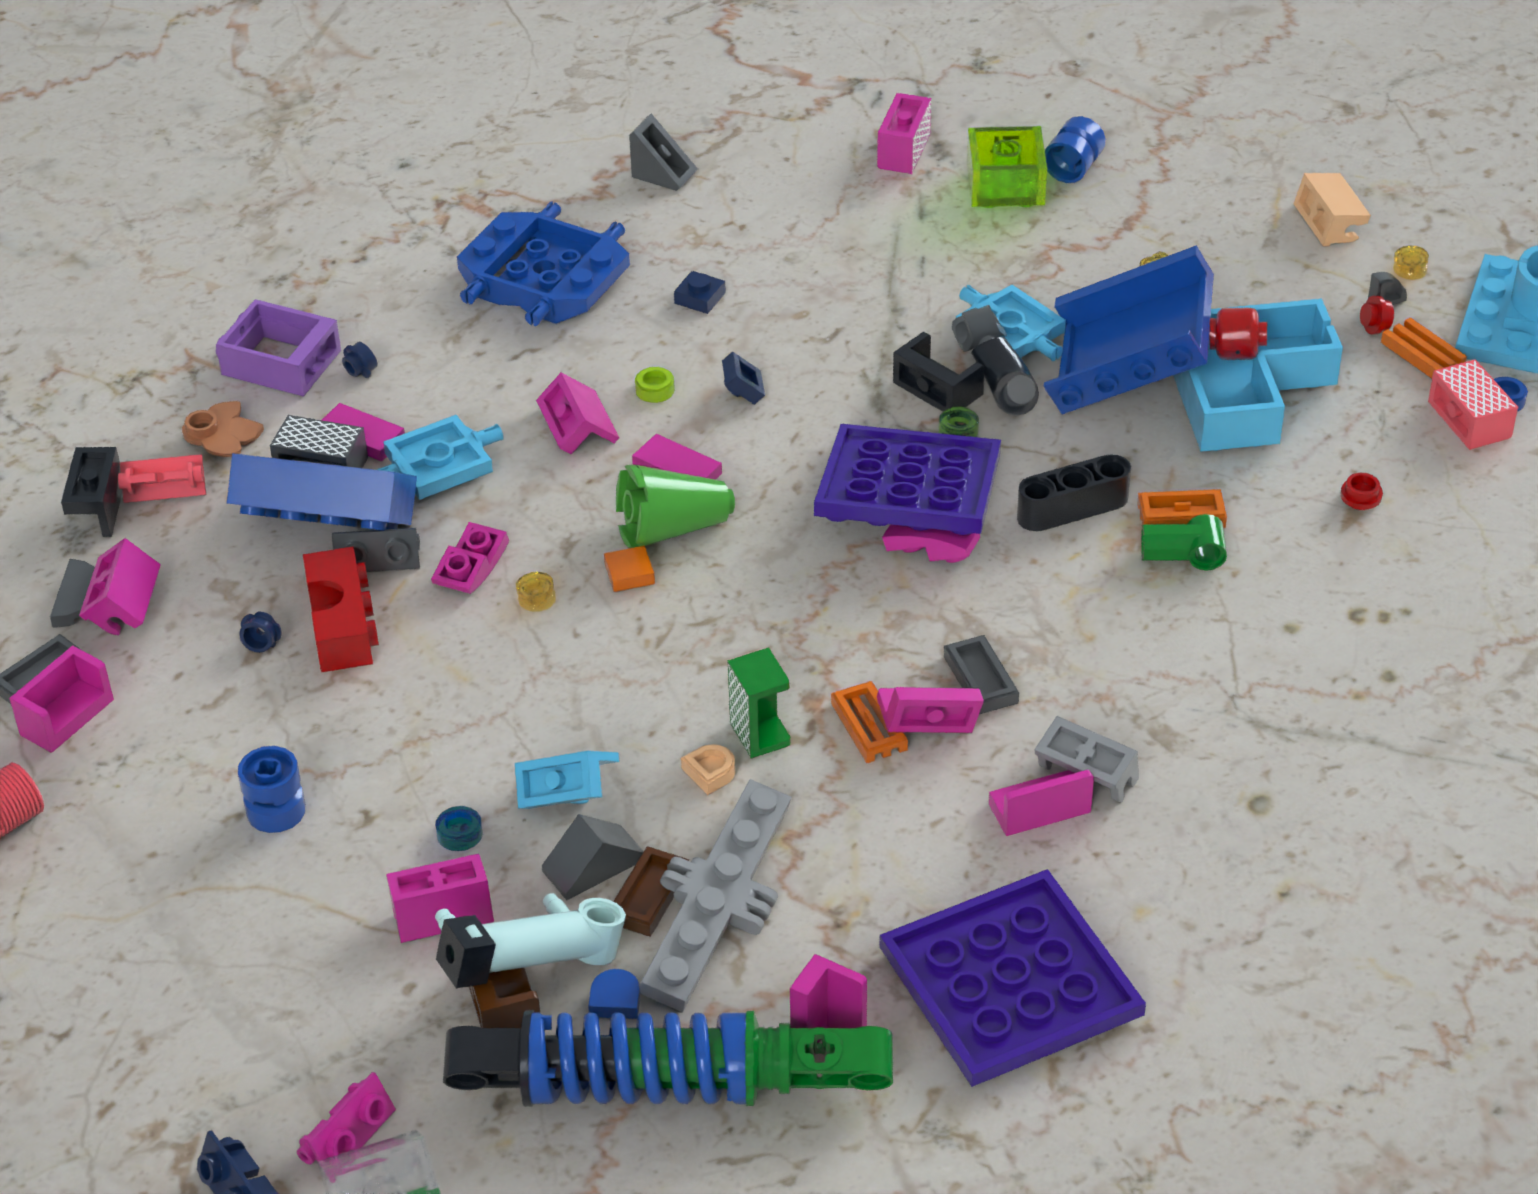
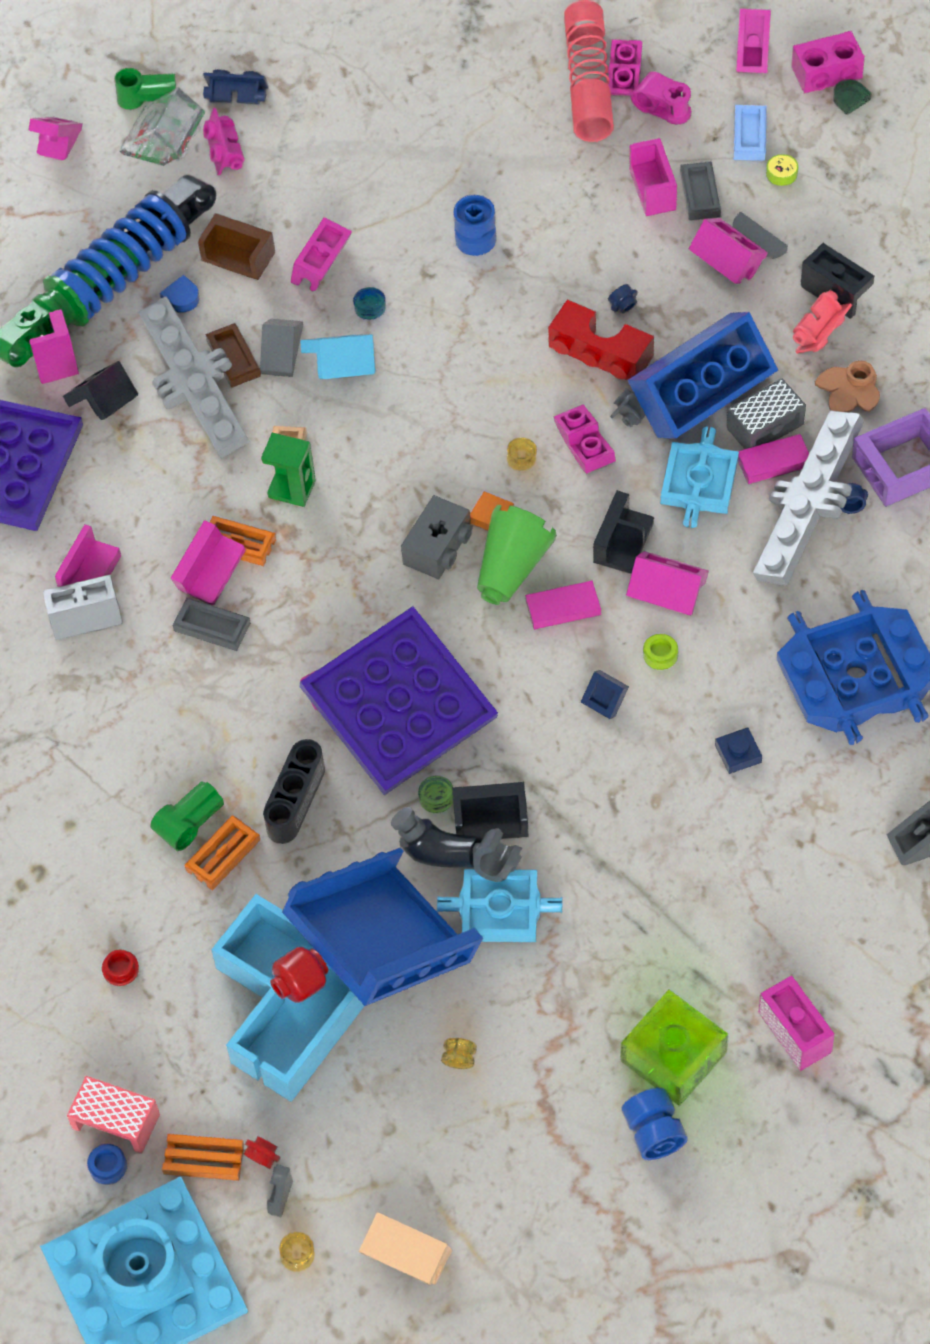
camera: 135 degrees right, 15 degrees up
(388, 375) = (809, 497): none -> hinge
(474, 949) = (241, 218): light aqua piece -> none
(559, 471) = (621, 535): none -> black panel
(705, 574) = (436, 537): none -> dark grey brick
(833, 935) = (104, 390): none -> black panel

